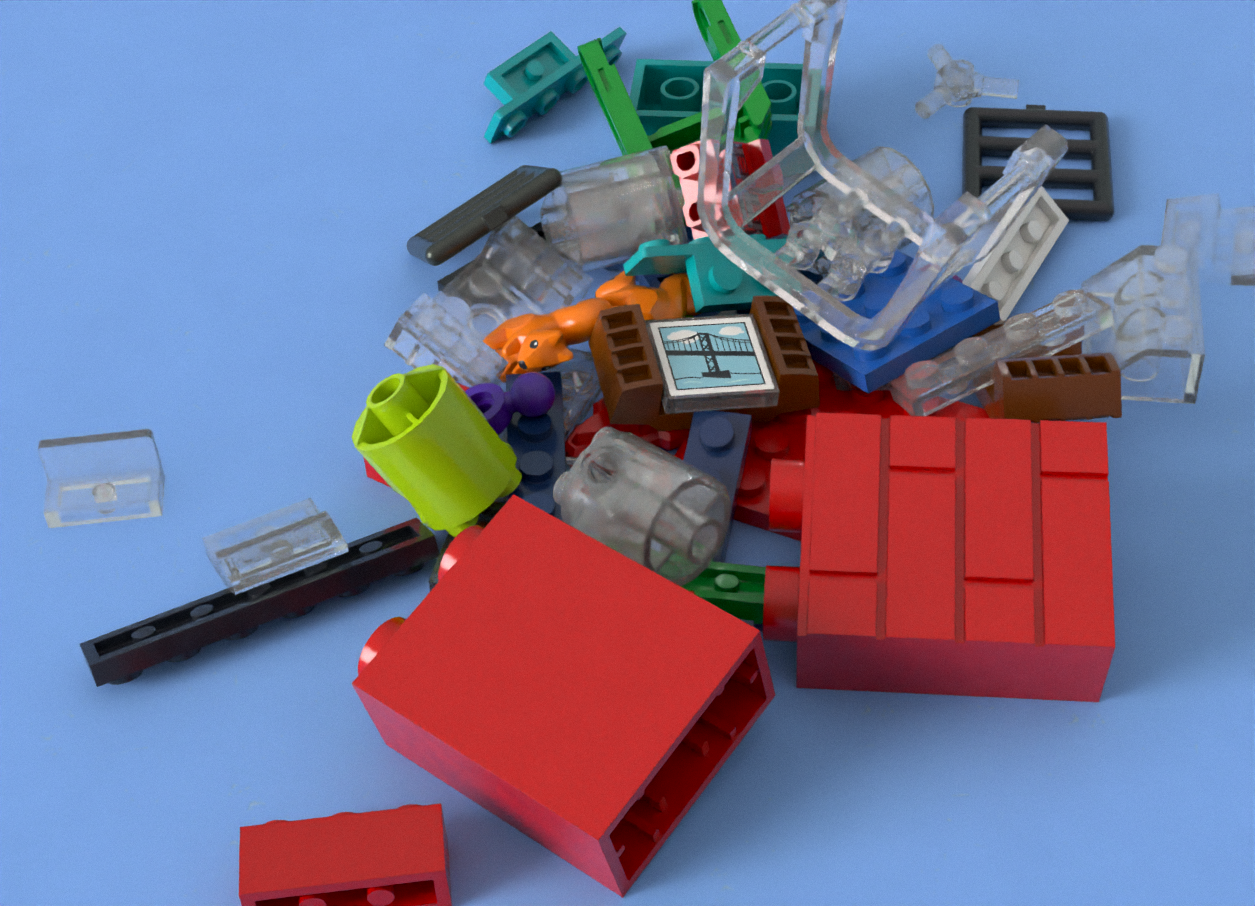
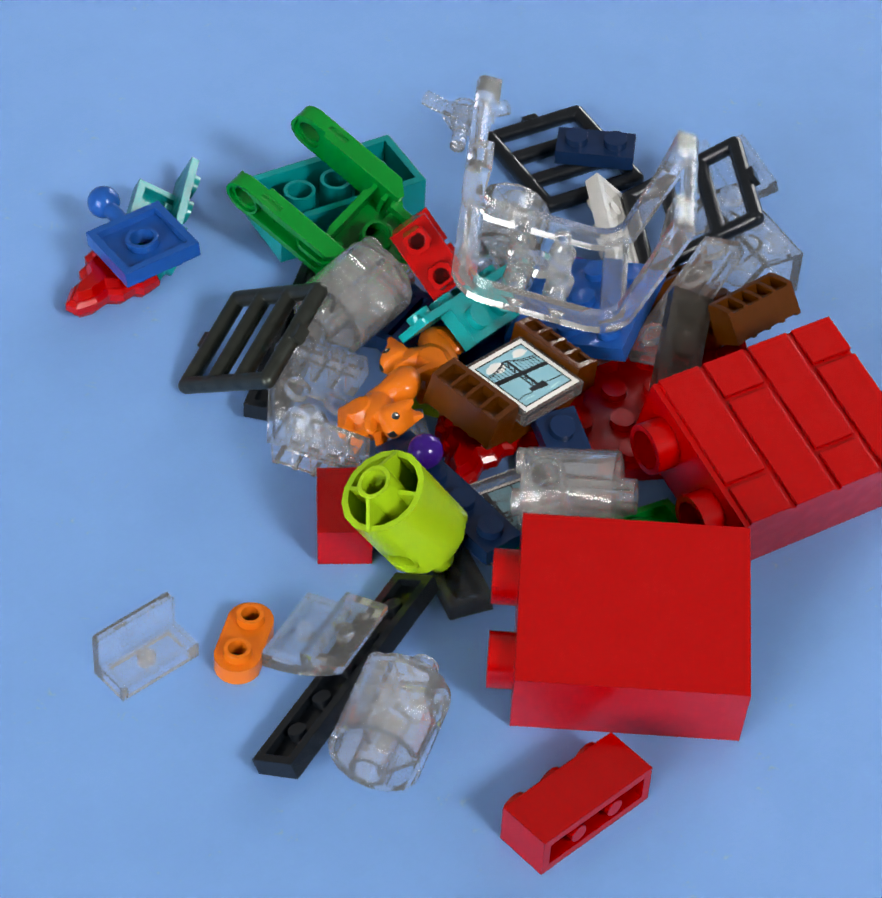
camera: 40 degrees left, 0 degrees up
(222, 506) = (246, 633): none -> orange plate
(225, 670) = (390, 721): none -> clear cylinder
(440, 118) = (102, 287): none -> red rock
(477, 85) = (116, 242): none -> blue plate
(954, 379) = (682, 333): none -> clear smoke plate
(1088, 166) = (595, 148): none -> dark blue plate
(1104, 225) = (747, 181): none -> black bar

